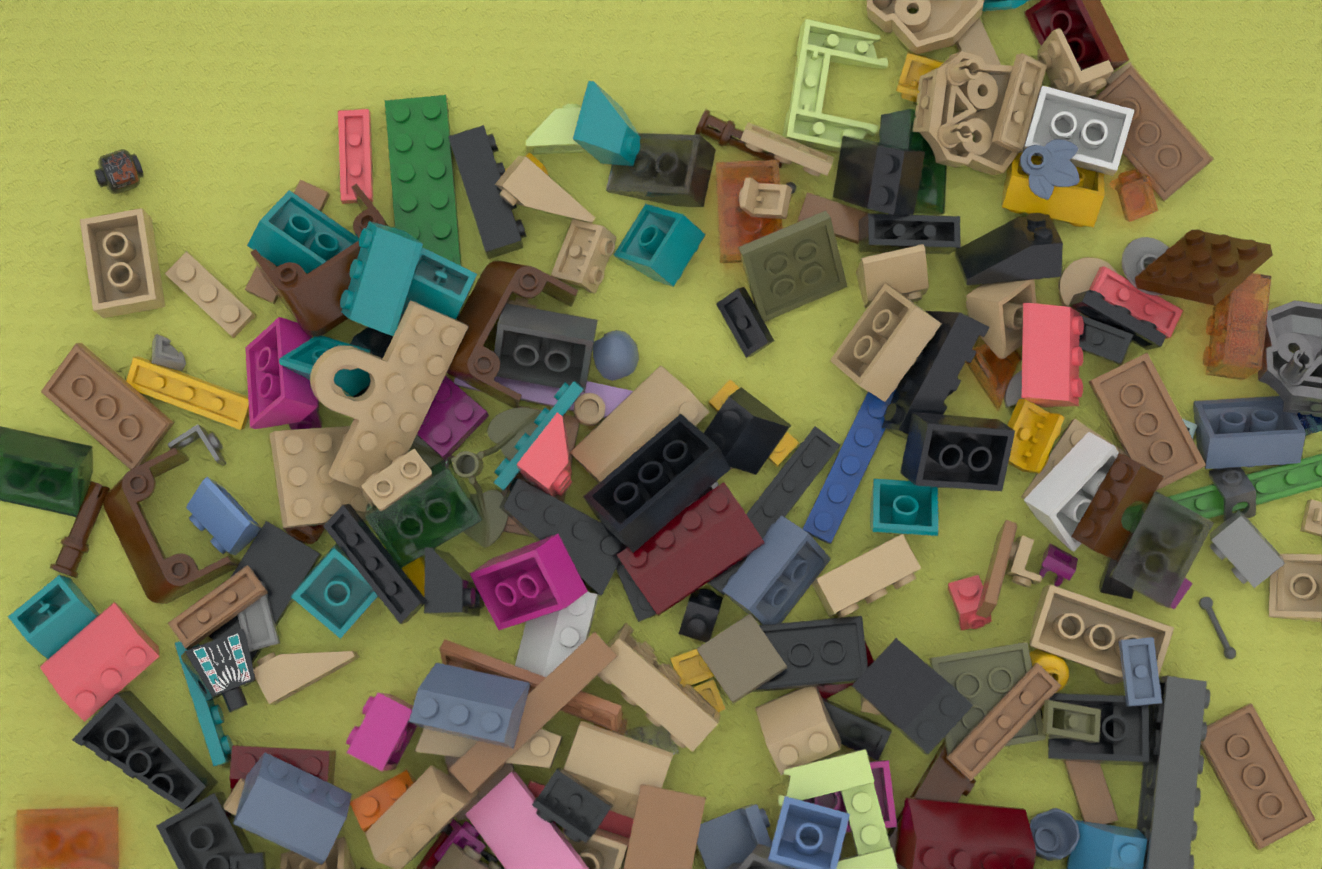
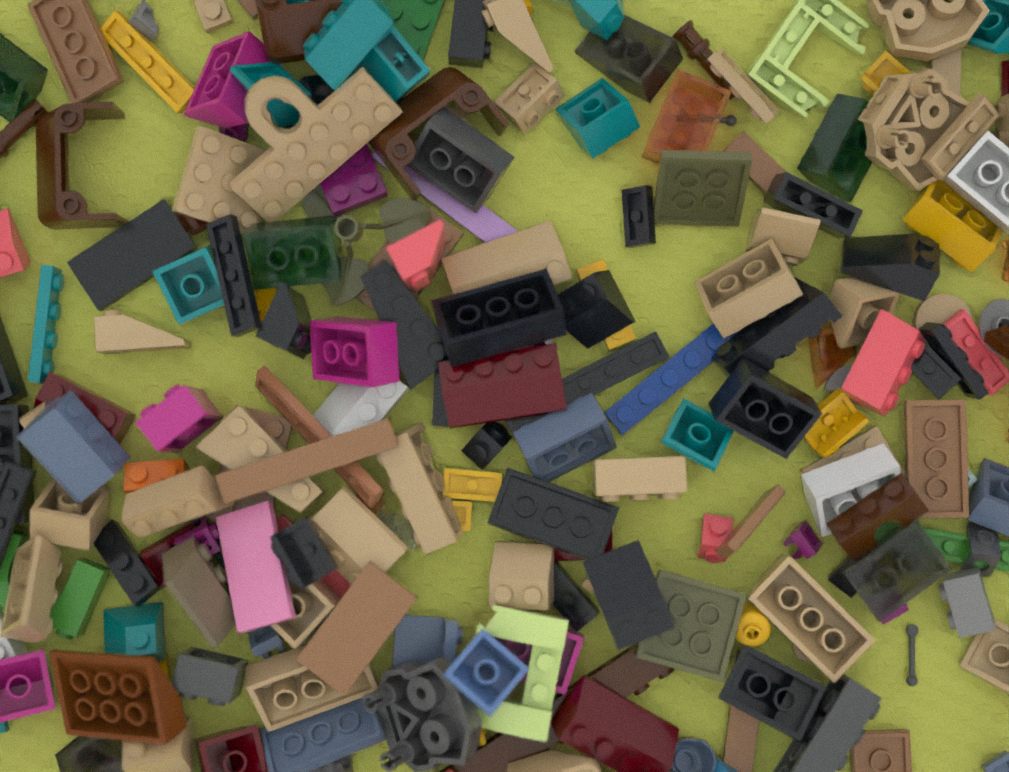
camera: 20 degrees right, 5 degrees up
(209, 440) = (147, 110): flat silver bracket -> none
(217, 607) = (89, 252): medium nougat tile -> none
(222, 516) = (129, 178): medium blue slope -> none
(222, 668) = (70, 304): torso -> none
(259, 624) = (118, 274): light grey tile -> none
(396, 480) = (282, 214): tan bracket -> none
(470, 705) = (257, 430): sand blue slope -> none
(566, 397) = (457, 210): teal plate -> none
(589, 409) = (473, 229): tan tile -> none
(615, 355) = (517, 194): sand blue hair -> none
(741, 658) = (502, 496): dark tan tile -> none
(765, 199) = (703, 119): tan bracket -> none
(878, 176) = (810, 144): black slope -> none
(1003, 721) = (695, 651): medium nougat tile -> none
(1018, 560) = (771, 523): tan bracket -> none
(1055, 167) = (963, 207): sand blue plate -> none
(1071, 722) = (751, 678): olive slope -> none
(1140, 671) = (829, 664): sand blue plate -> none

